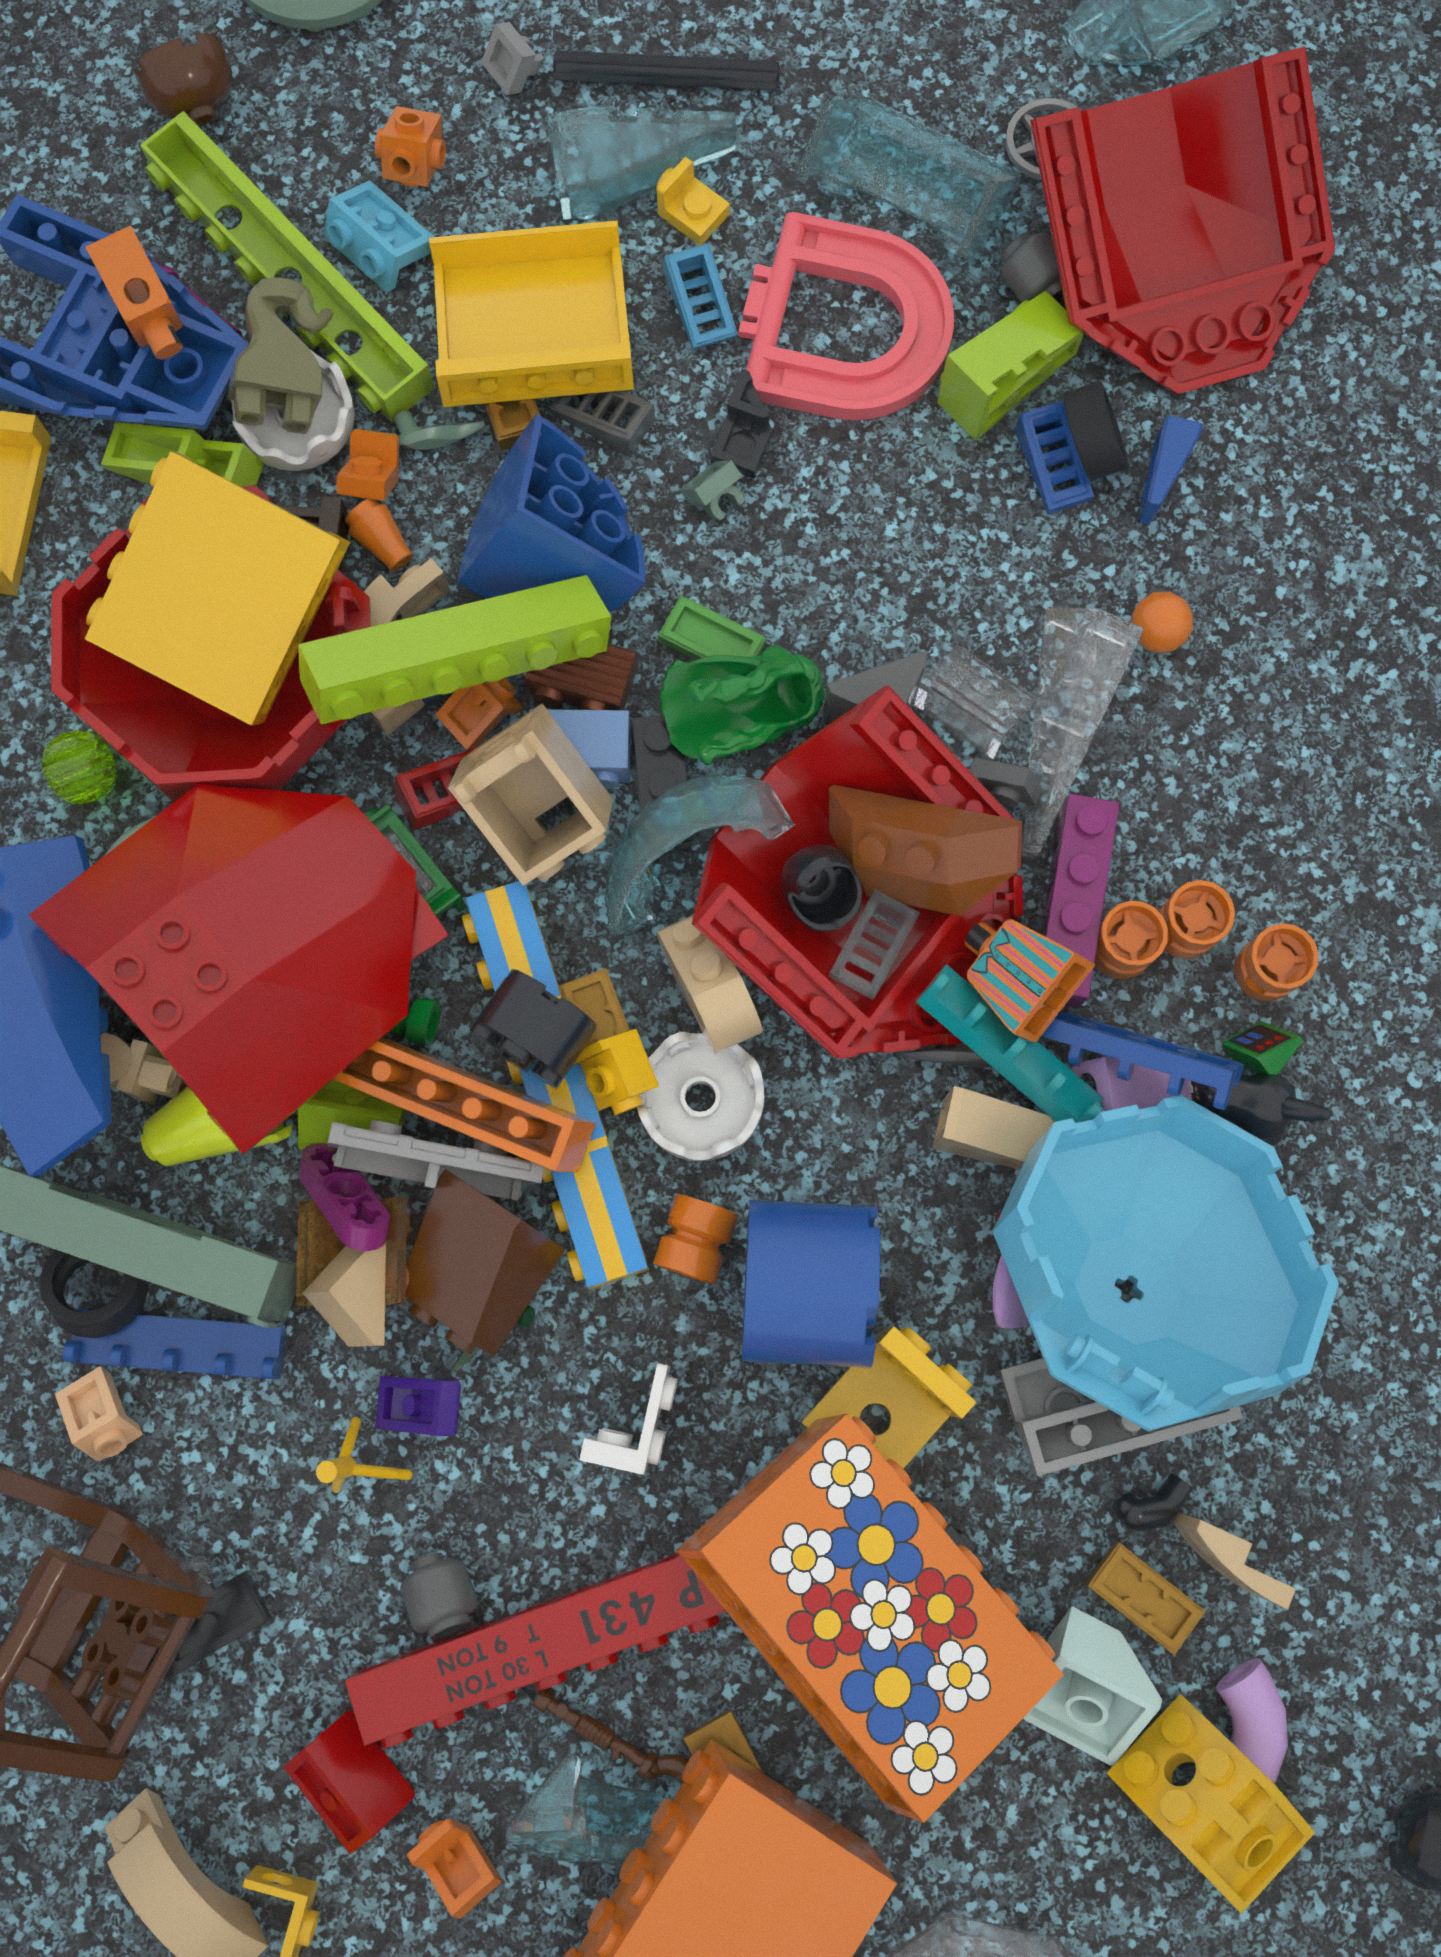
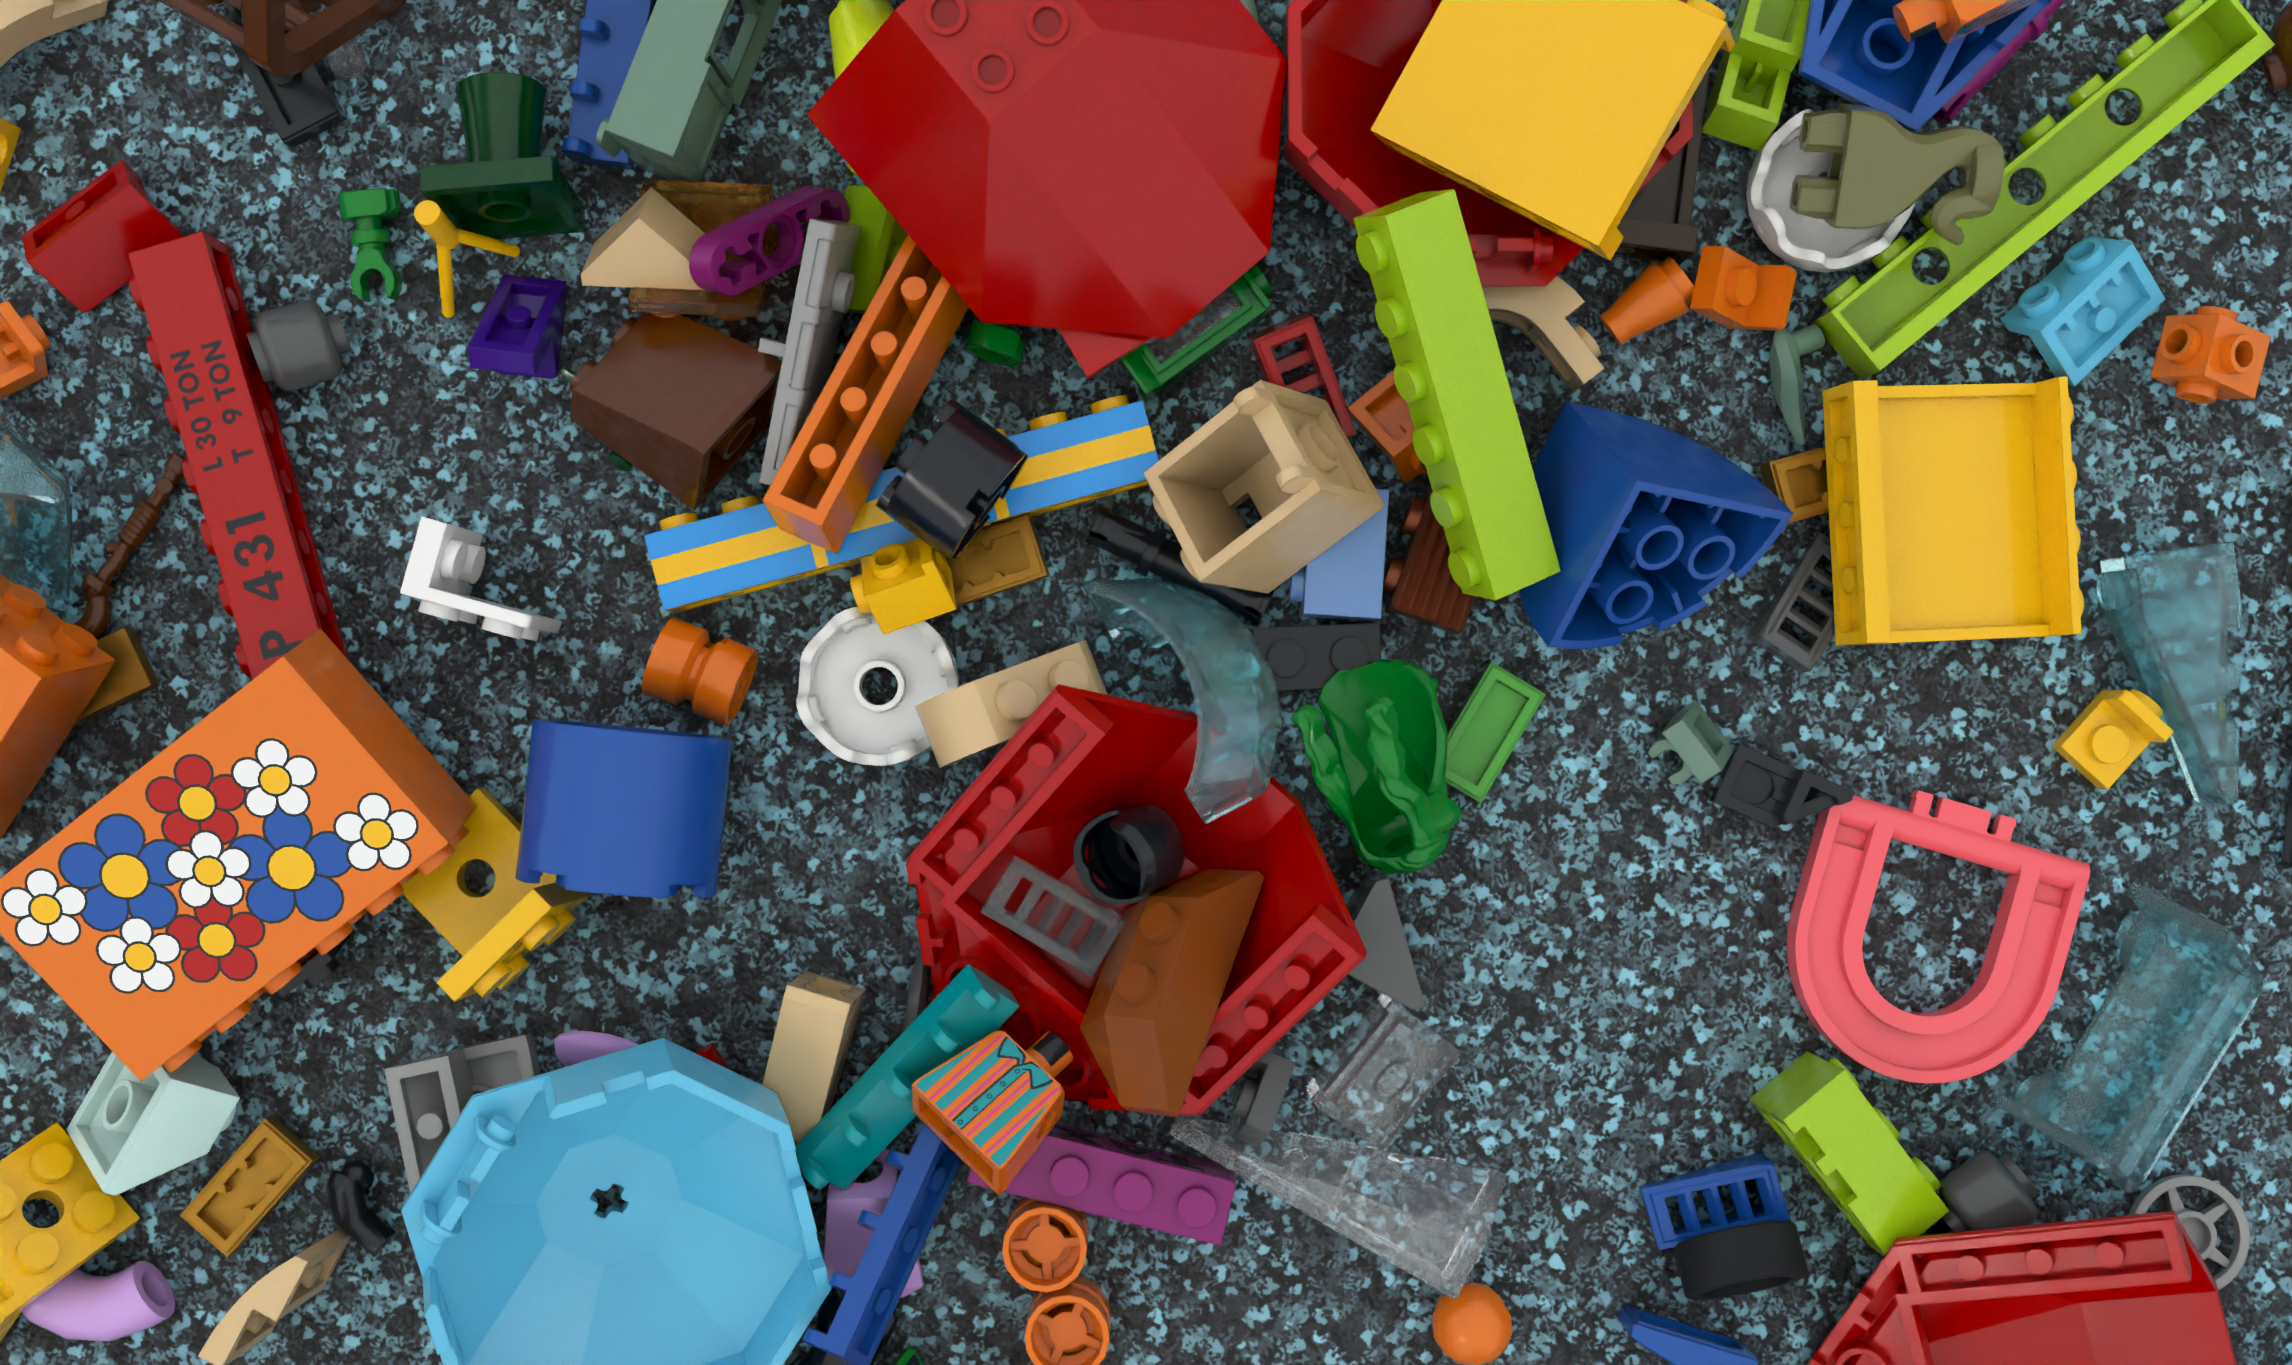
camera: 90 degrees right, 10 degrees up
(299, 1422) = (506, 181): none -> dark green plant
(323, 1545) = (367, 211): none -> green piece
(586, 887) = (1161, 556): none -> black pin
(688, 261) = (2024, 728): dark azure slope -> none

